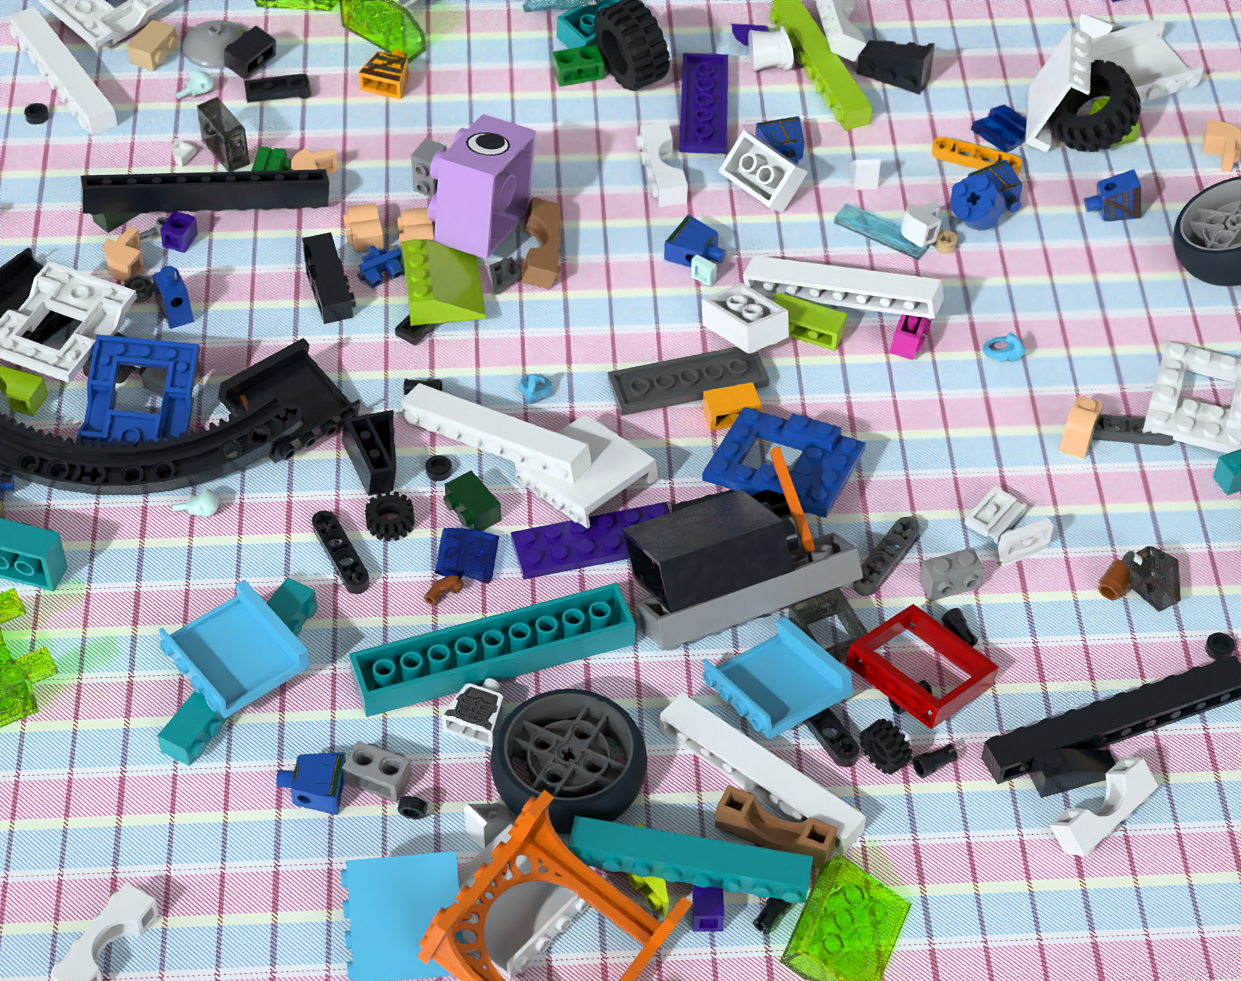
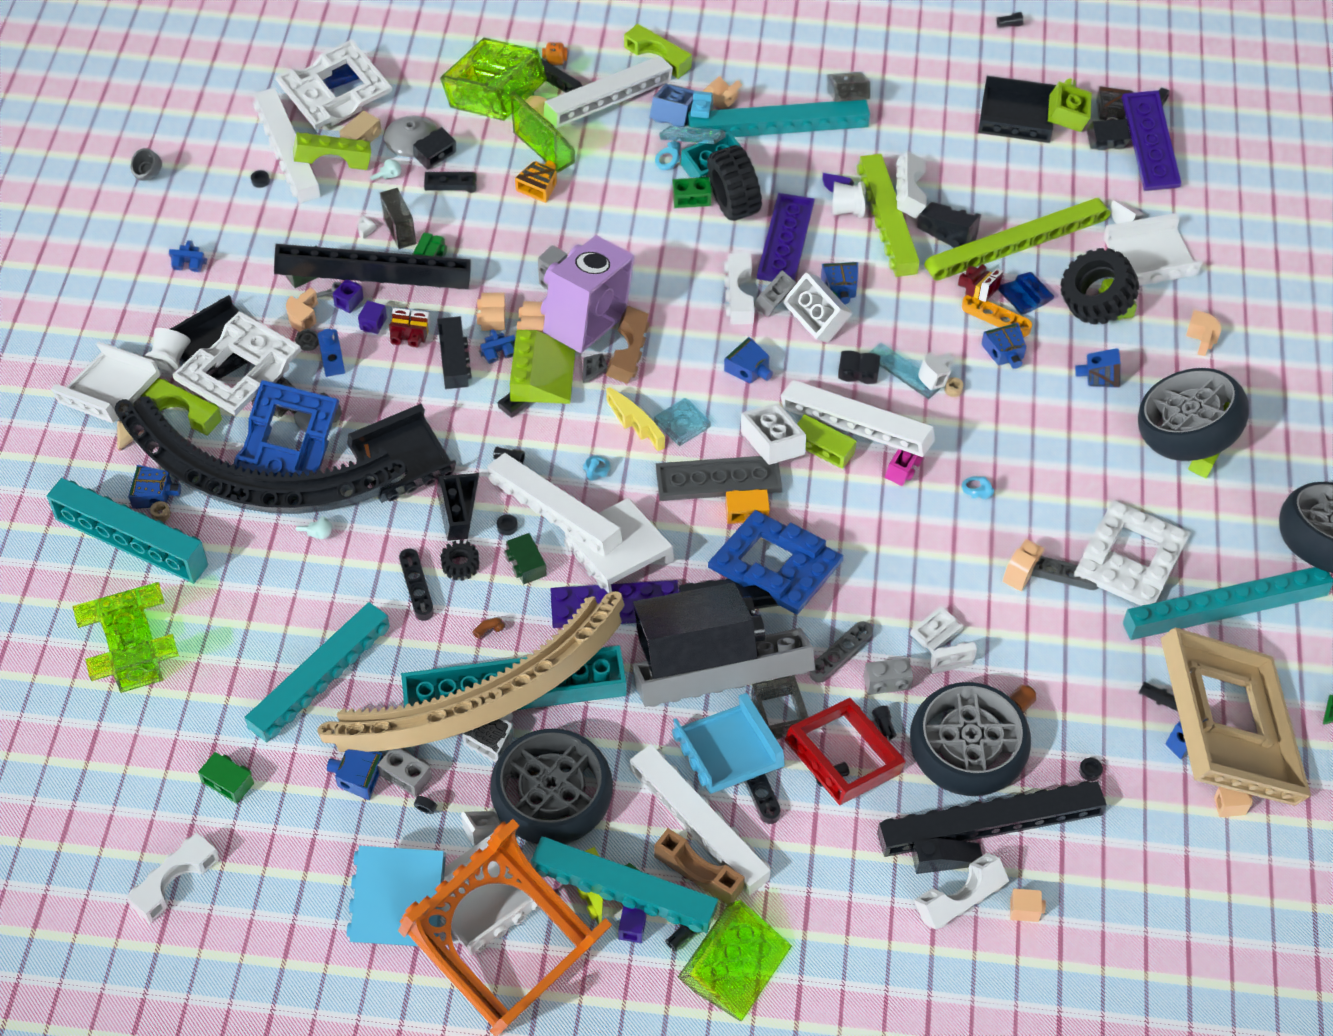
camera: 10 degrees right, 5 degrees up
(95, 66) = (310, 147): none -> lime arch
(147, 813) = (226, 777): none -> green brick
(215, 252) = (372, 317): none -> dark purple brick
(236, 651) = (315, 658): medium azure panel -> none
(267, 261) = (409, 327): none -> dark red hips
(319, 160) = (462, 250): light nougat brick -> none
(464, 670) = (484, 702): none -> tan gear
(467, 554) = (512, 601): clear blue slope -> none
(545, 21) = (673, 149): none -> medium azure piece
(566, 322) = (631, 415): none -> light yellow slope
(628, 322) = (682, 421): none -> clear light blue plate
(703, 270) = (751, 386): light aqua tile -> none
(707, 163) = (774, 293): none -> light grey brick
(792, 500) = (769, 598): orange tile -> none
(828, 233) = (859, 367): none -> black brick
(865, 173) = (901, 318): white slope -> none
(885, 746) = (800, 813): black tyre -> none
(929, 762) = (833, 831): black pin -> none
(949, 122) = (980, 282): none -> dark red hips
(975, 71) = (1017, 239): none -> lime beam
(977, 202) = (985, 358): blue brick -> none
(1065, 69) = (1077, 257): white panel -> none
(1069, 630) = (982, 706): none -> light grey wheel
(1154, 576) = (1049, 703): clear smoke torso -> none
(1185, 811) = (1026, 905): none -> light nougat brick

